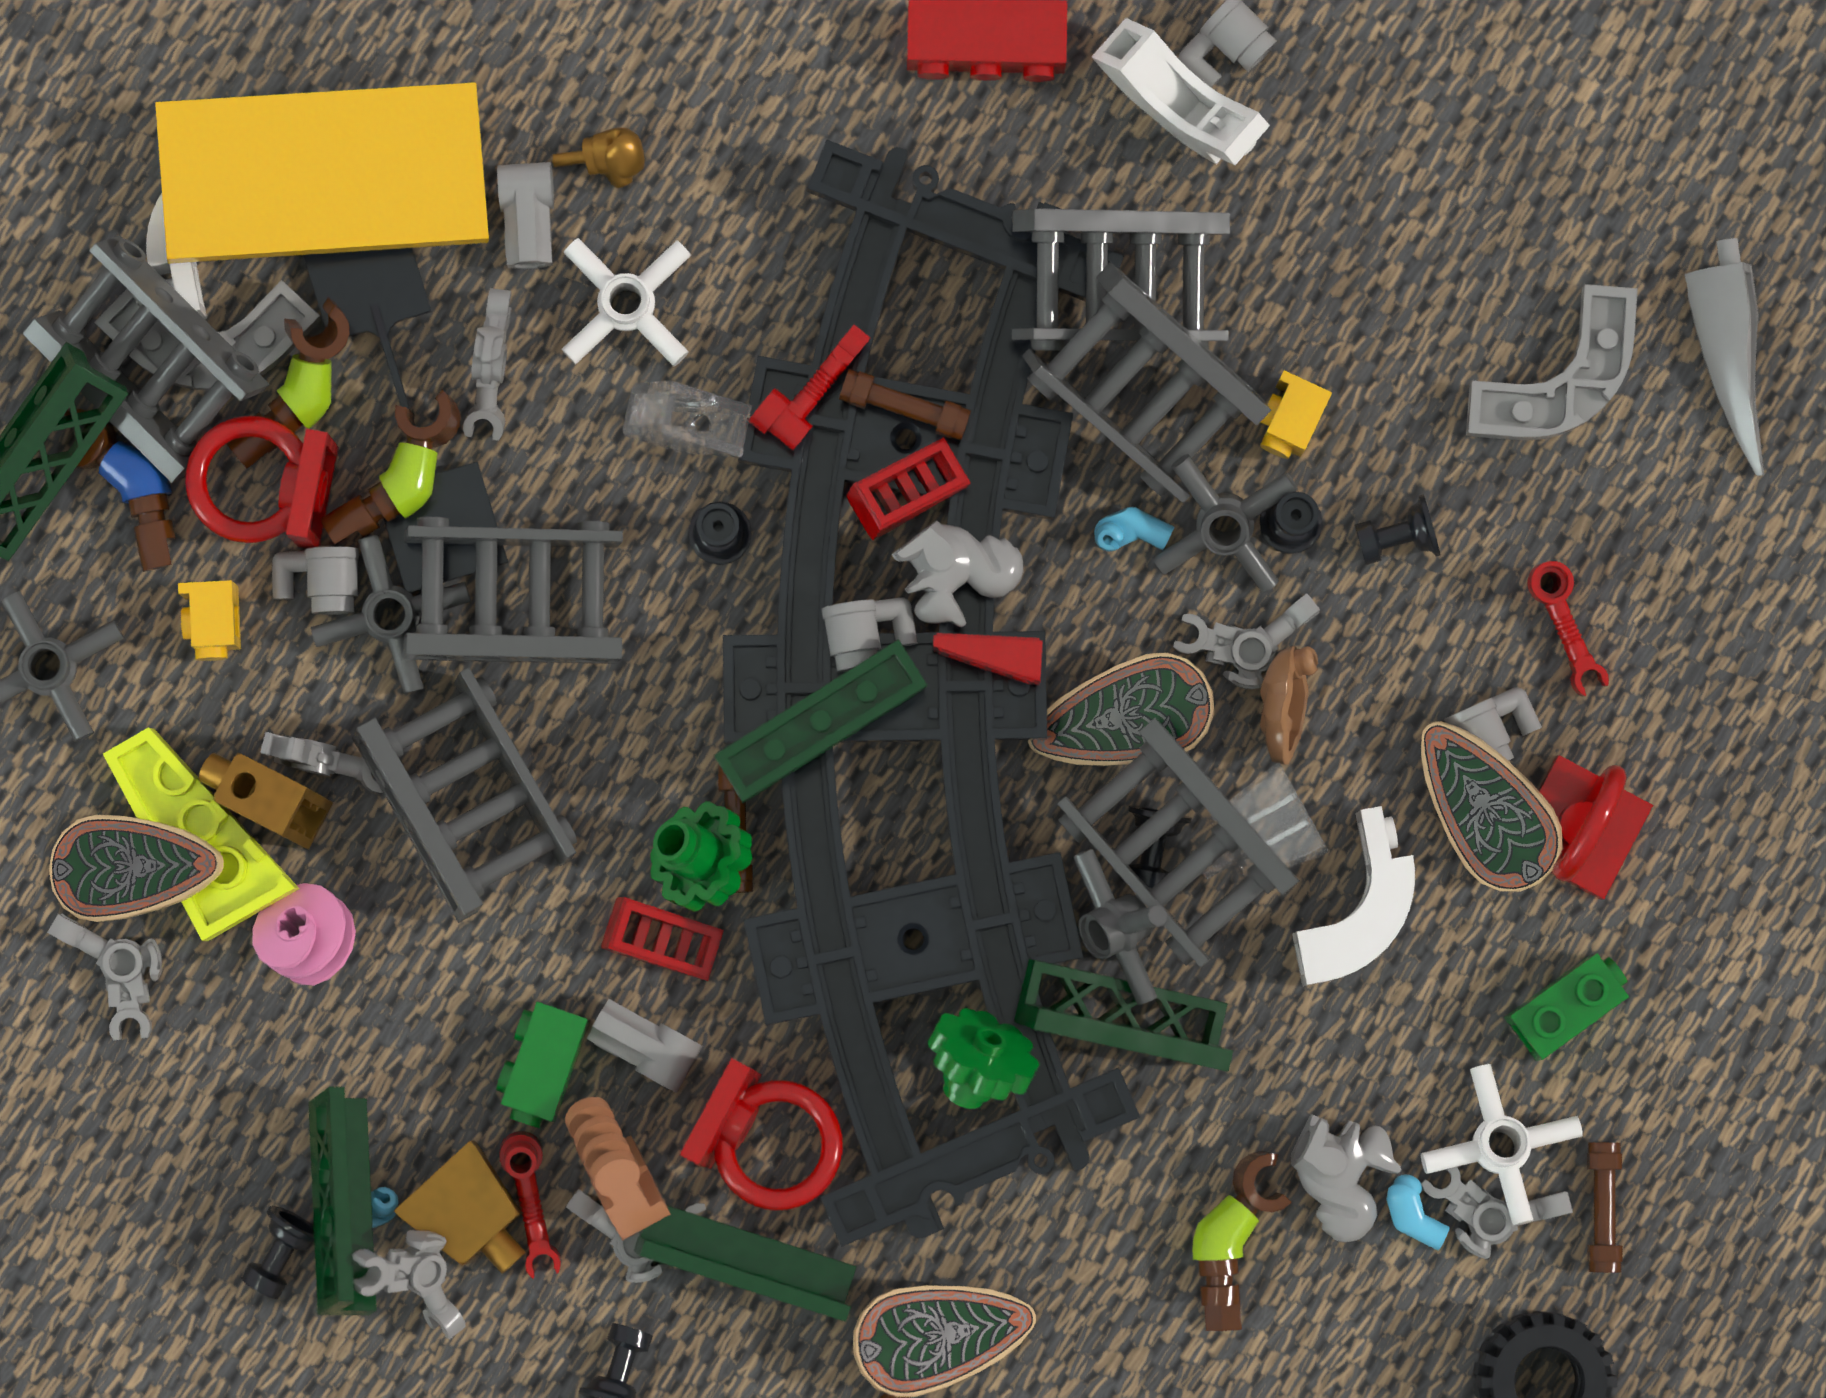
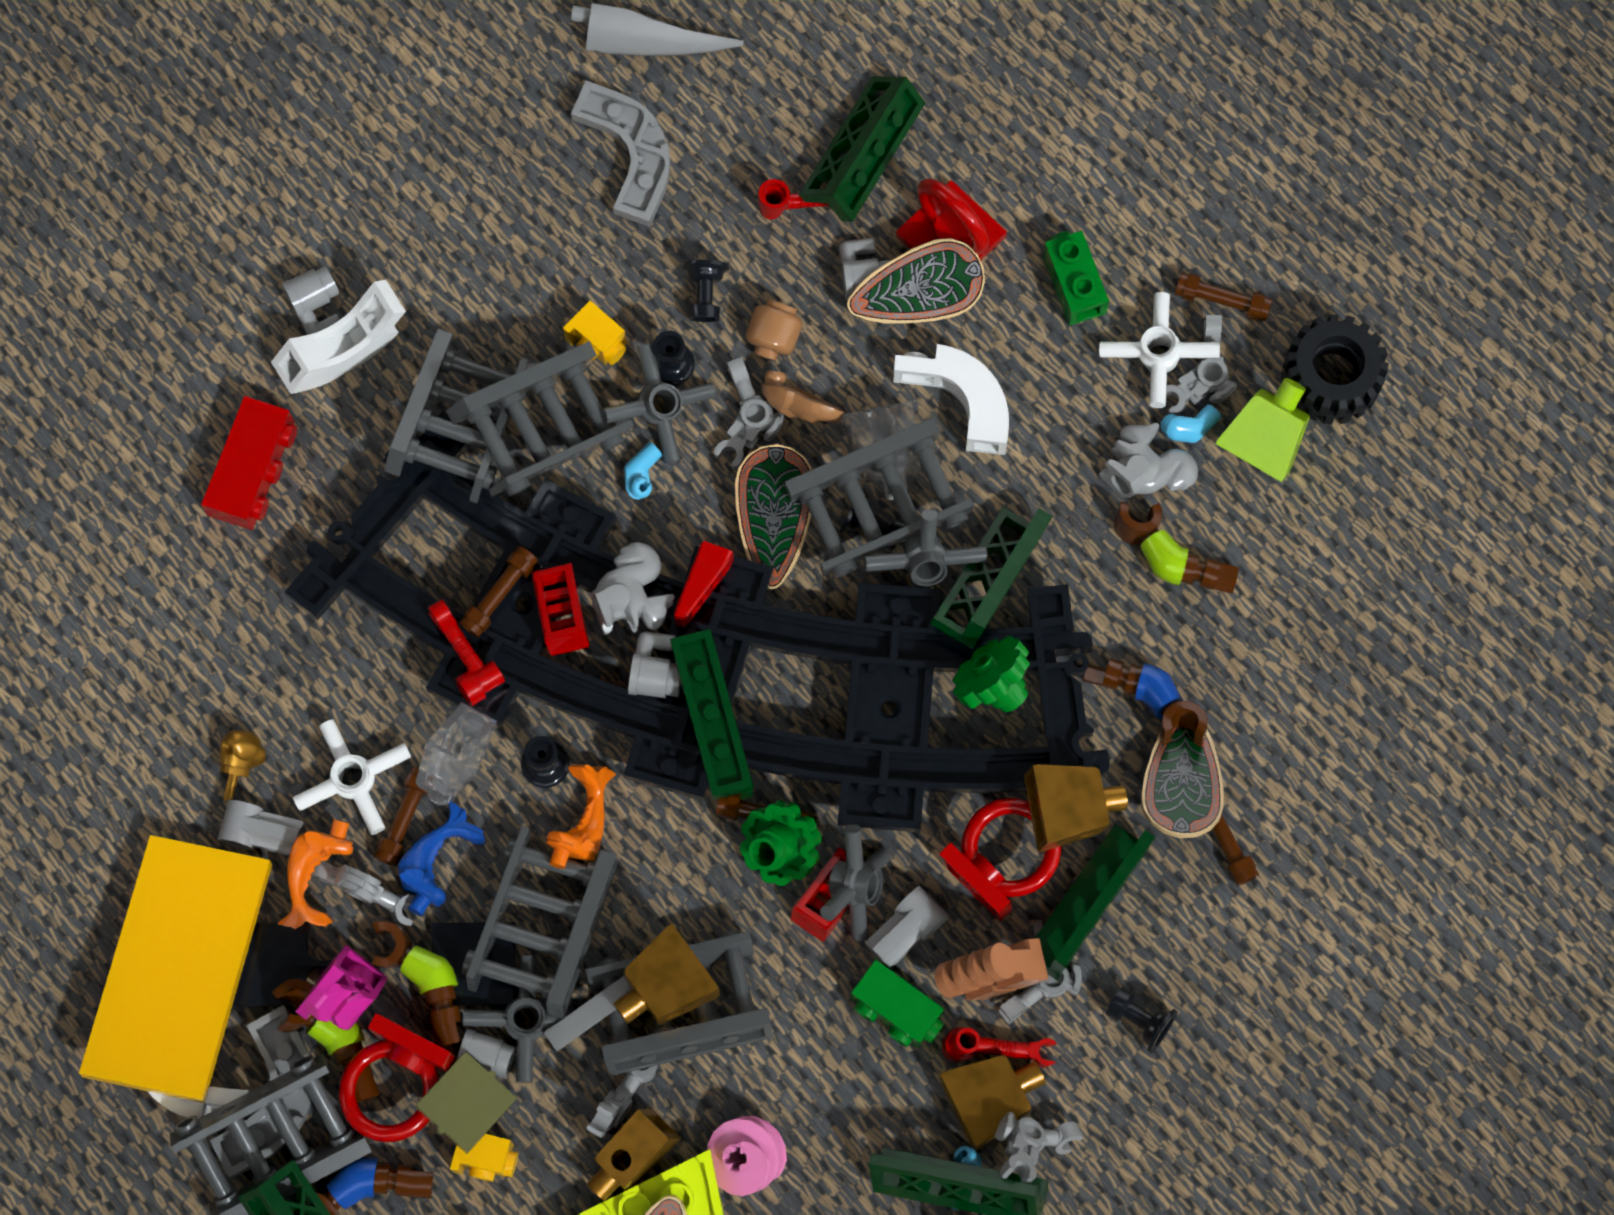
camera: 65 degrees left, 10 degrees down
(261, 576) = (466, 1102): none -> olive piece
(351, 382) = (343, 990): none -> dark pink piece
(423, 695) = (587, 1015): none -> light grey sticker
(477, 769) = (666, 980): none -> pearl gold torso
(507, 279) = (304, 855): none -> orange animal
(538, 418) = (416, 864): none -> blue animal
(552, 378) = (390, 849): none -> reddish brown bar
(638, 614) = (586, 837): none -> orange animal
(674, 965) = (855, 883): none -> dark grey bar
(846, 1203) = (1069, 803): none -> pearl gold torso
(1043, 1269) = (1157, 692): none -> reddish brown piece
(1372, 639) = (773, 329): none -> medium nougat head
(1431, 1316) = (1269, 430): none -> lime torso
(1663, 685) = (869, 146): none -> dark green fence

